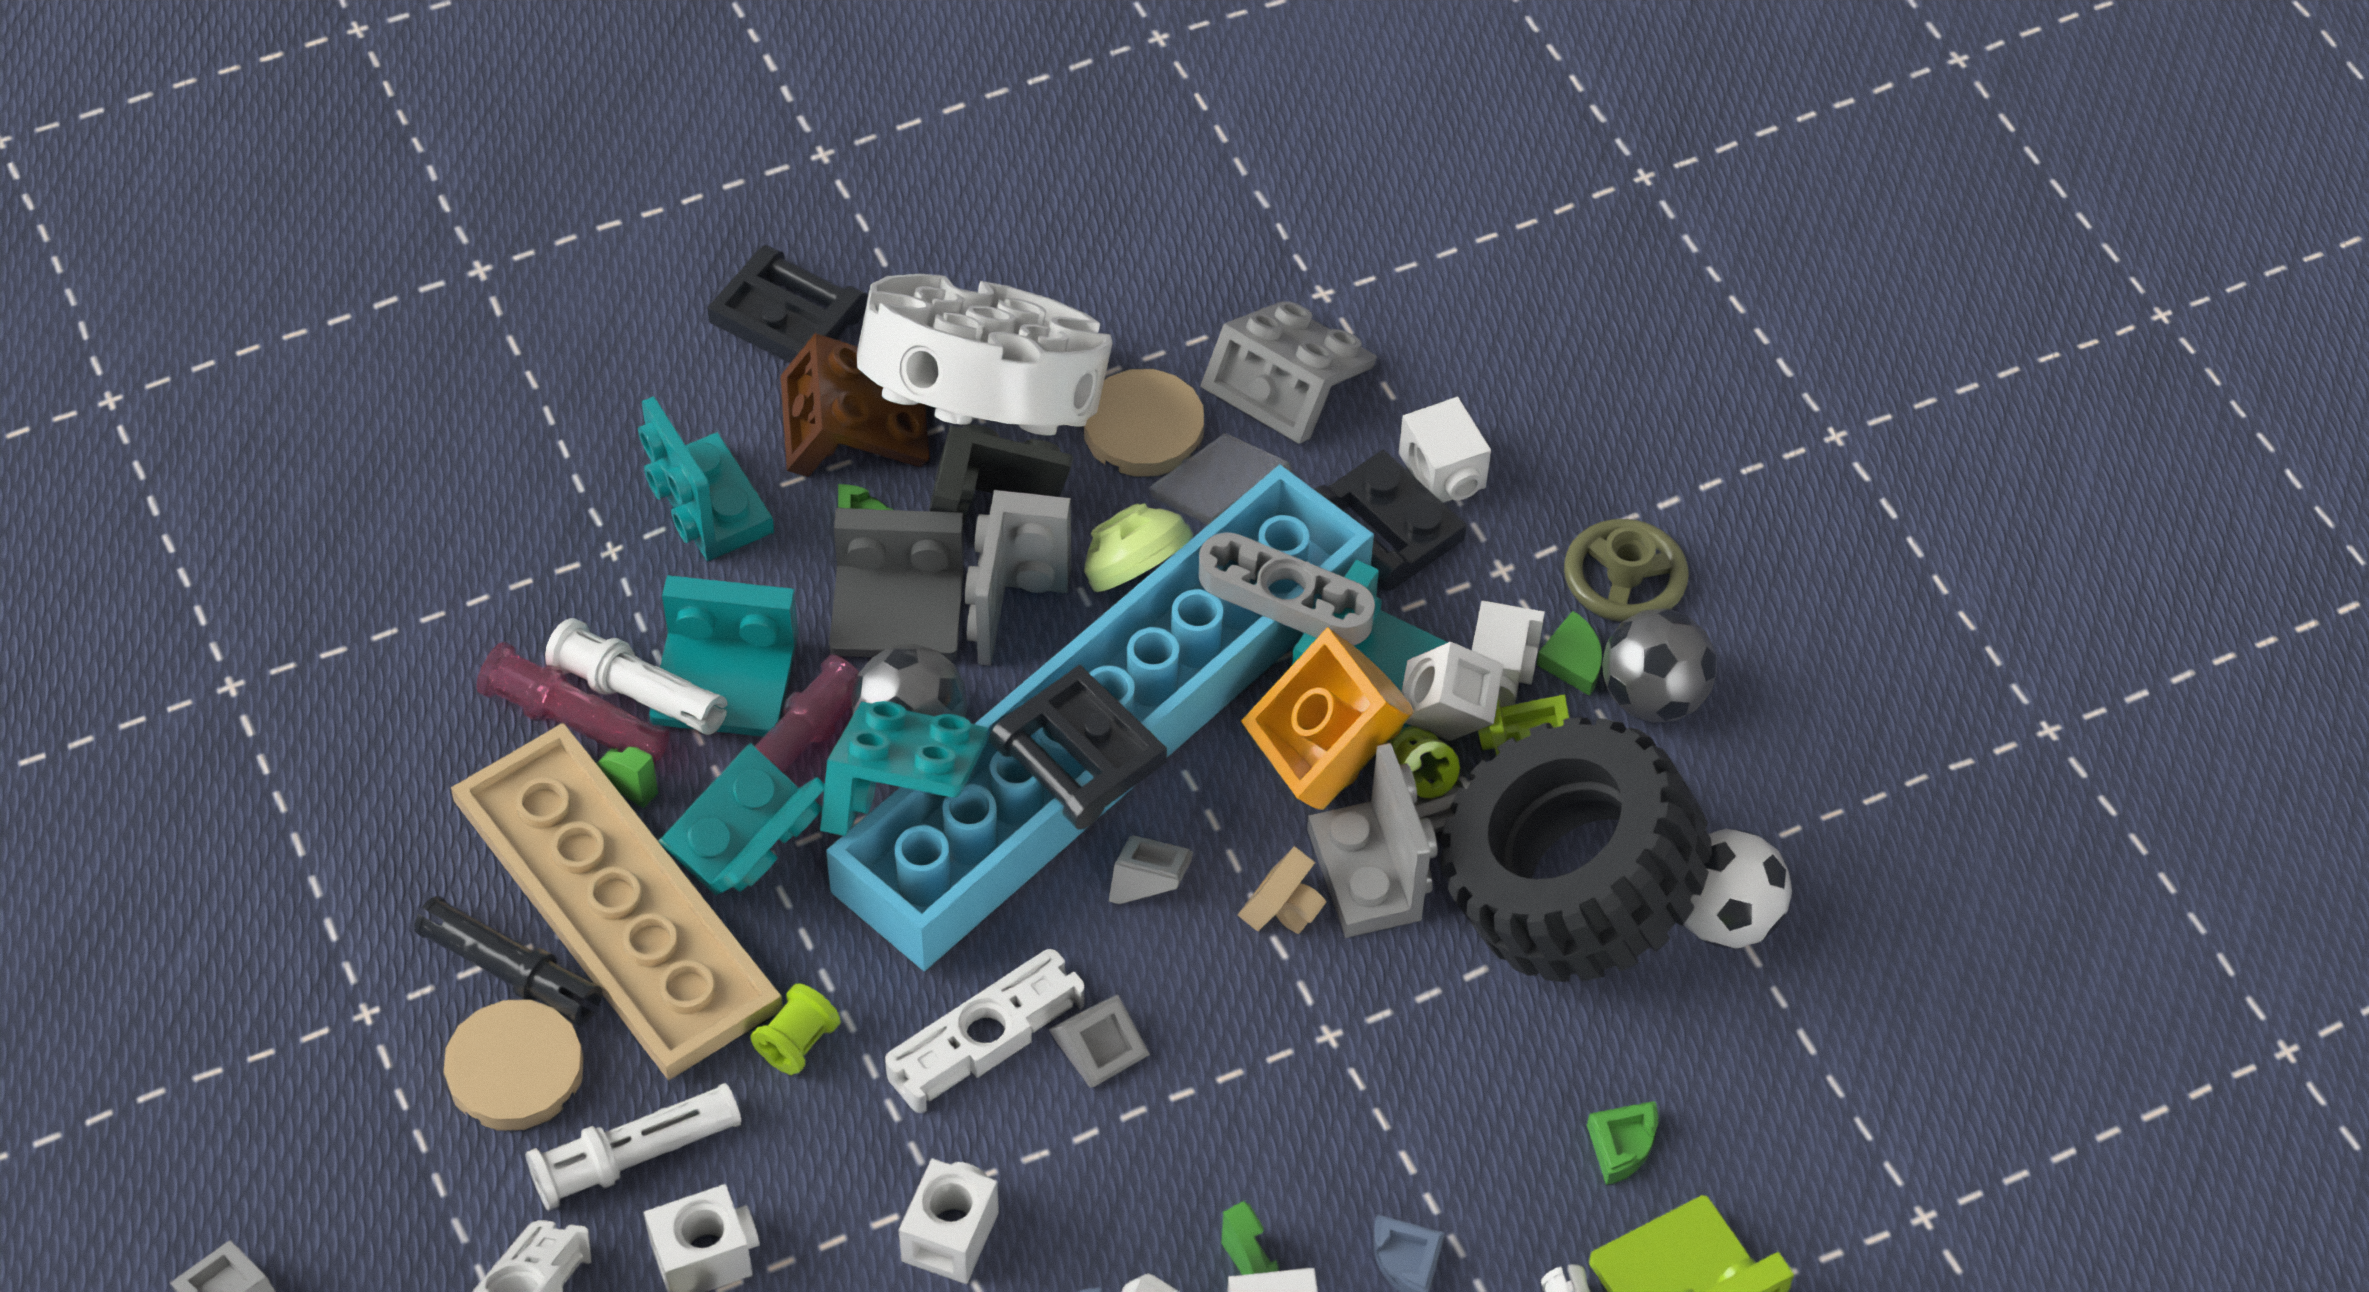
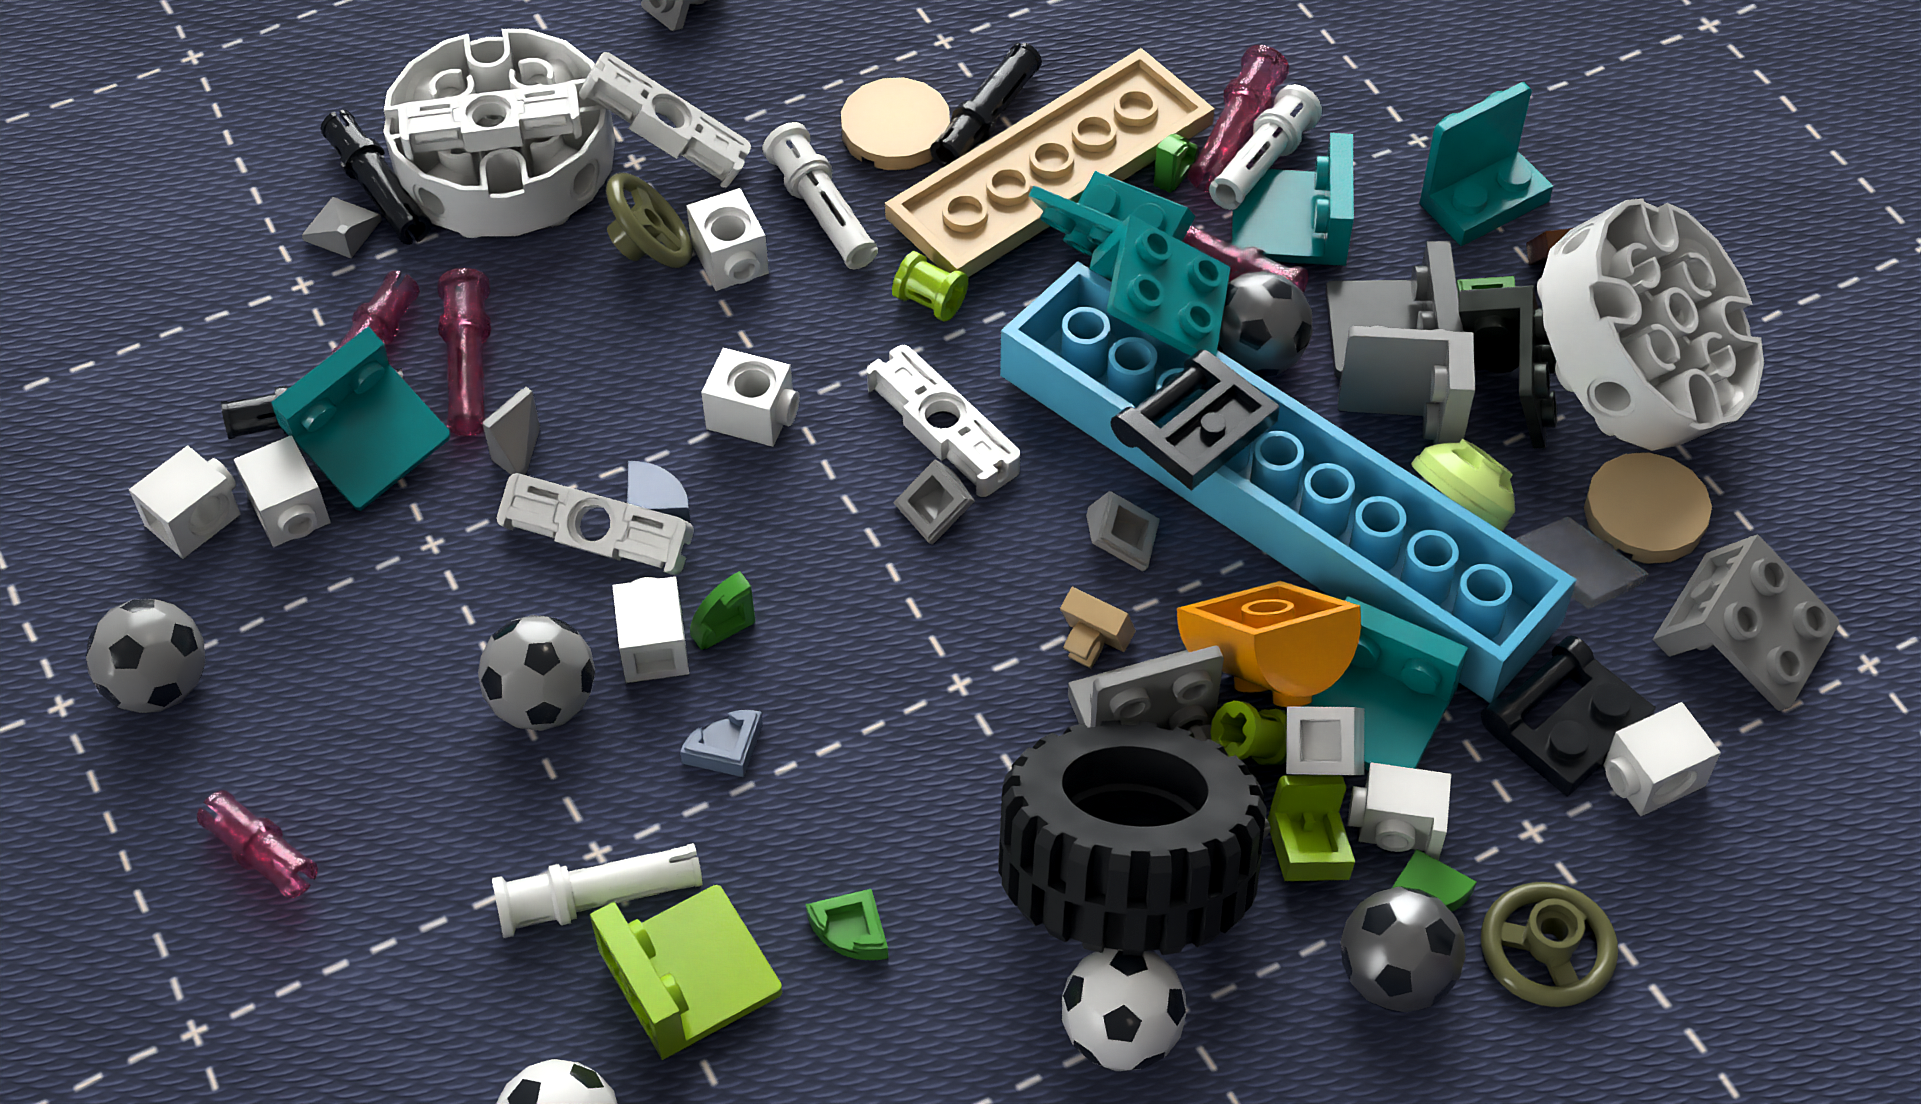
camera: 90 degrees right, 0 degrees up
(777, 318) = (1710, 199): black plate -> none
(1276, 565) = (1413, 603): light grey beam -> none

